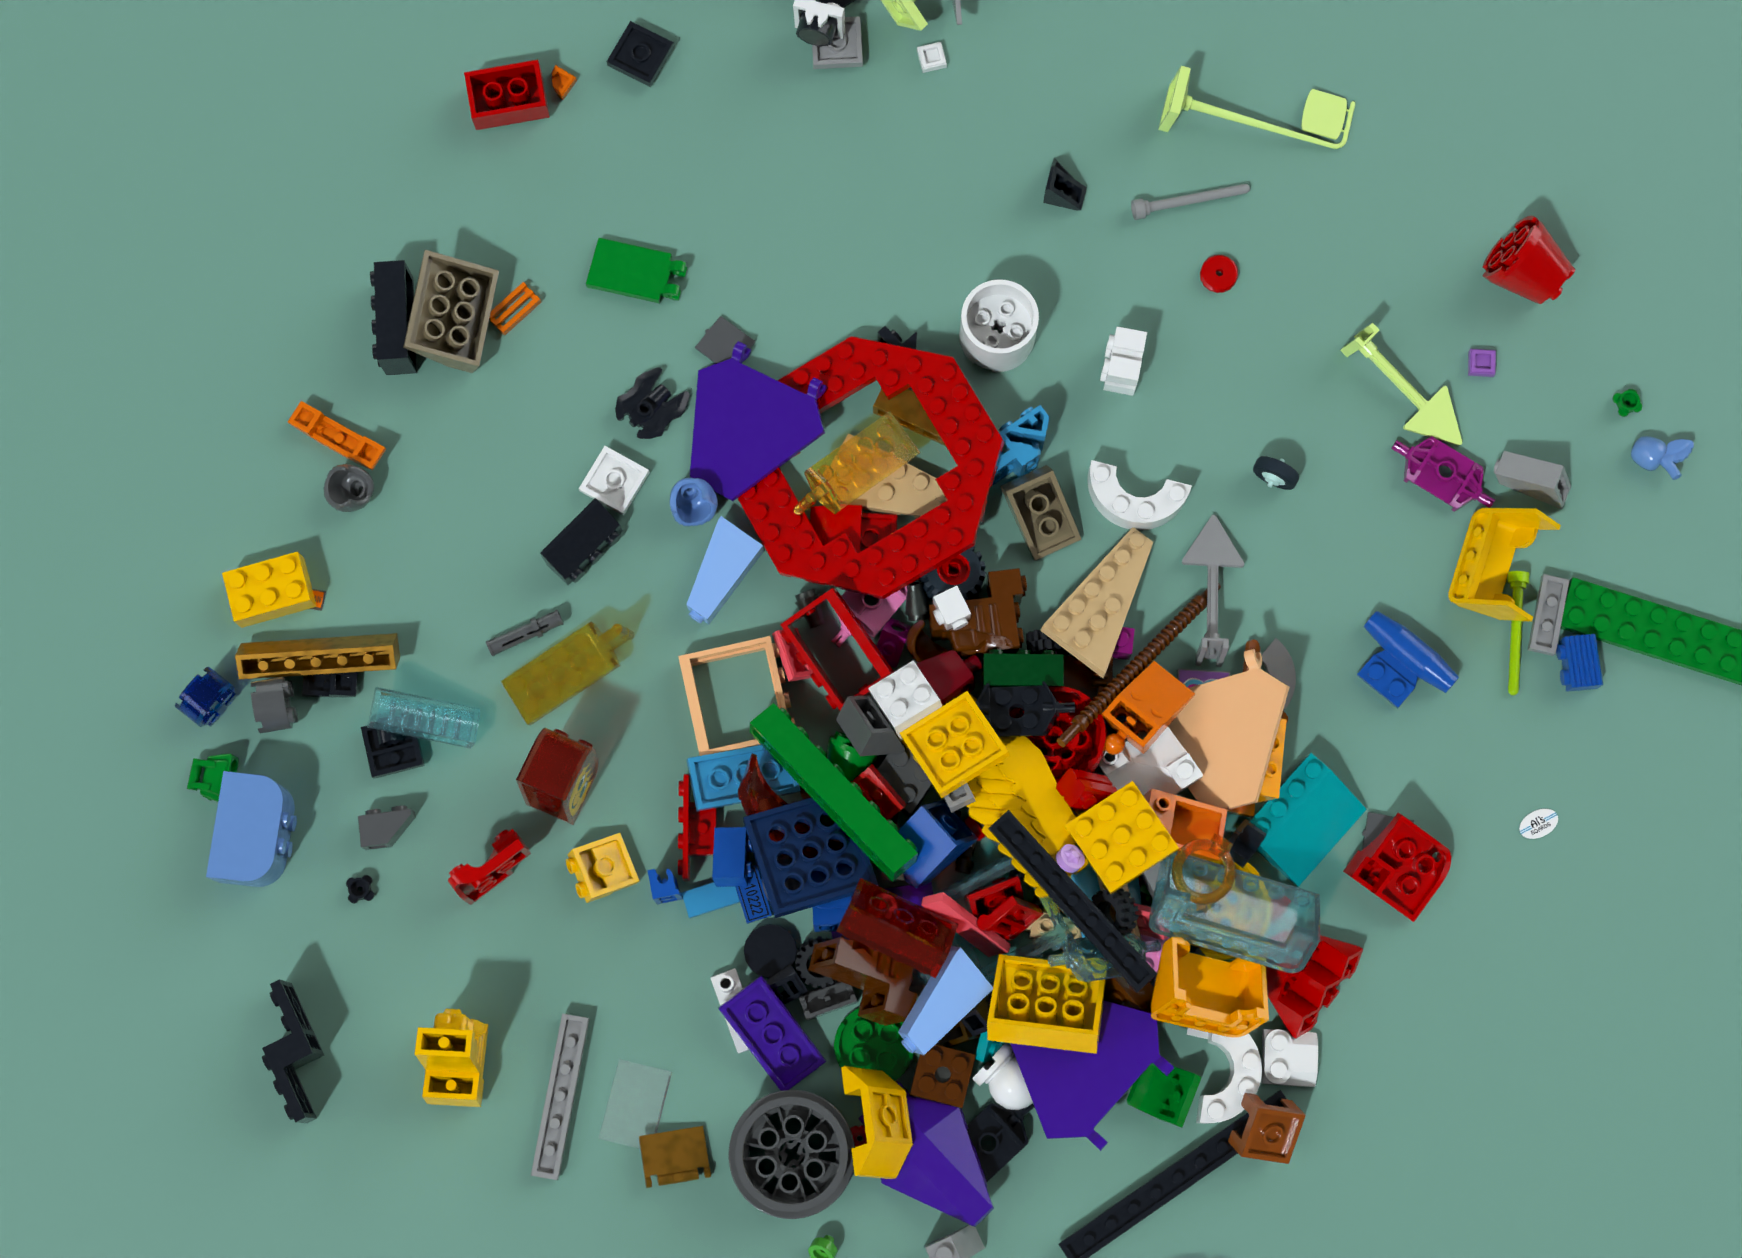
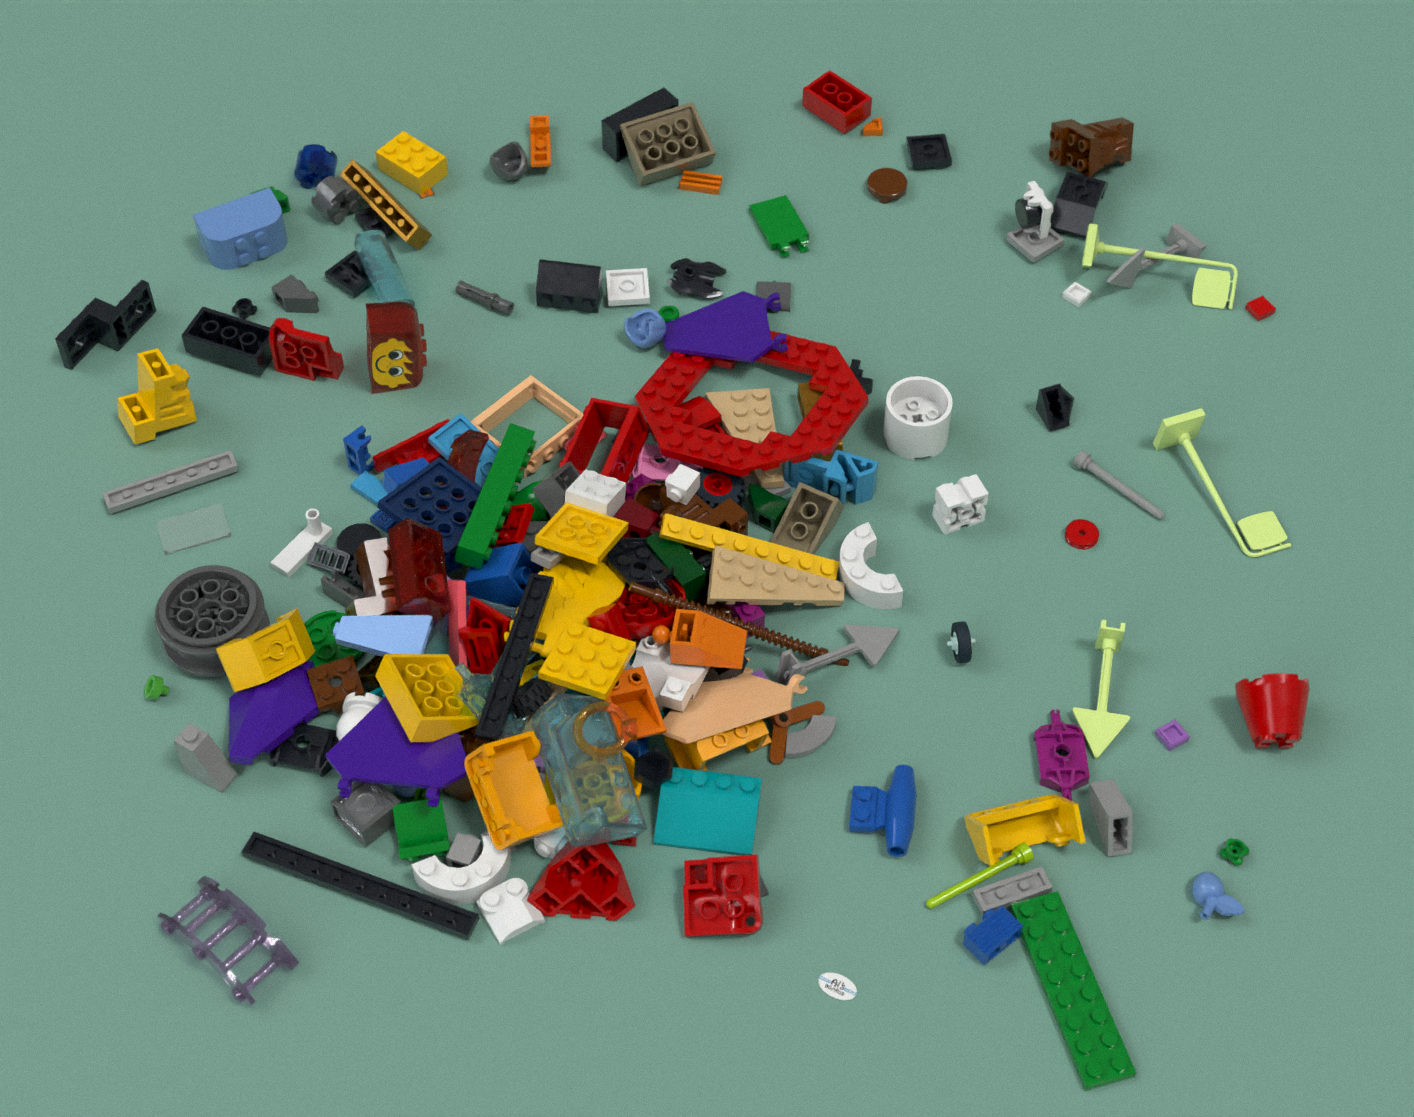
camera: 55 degrees right, 25 degrees down
(408, 931) = (228, 341): none -> black brick
(565, 670) = (478, 329): clear yellow hinge -> none
(601, 868) = (349, 414): yellow plate -> none
(656, 128) = (887, 184): none -> reddish brown tile
(674, 1156) = (165, 562): pearl gold piece -> none
(678, 464) = (669, 313): none -> green tile
(722, 570) = (611, 371): light blue slope -> none
(772, 1034) = (297, 569): dark purple tile -> none
(858, 465) = (742, 387): clear yellow hinge -> none
(1000, 538) = (766, 507): none -> dark green slope
(1053, 594) = (707, 537): none -> yellow plate
(1070, 858) = (546, 635): lavender tile -> none
(1116, 1128) = (367, 811): none -> piece
(1207, 1063) = (464, 851): none -> light grey brick
(1269, 1130) = (435, 911): dark orange panel -> none

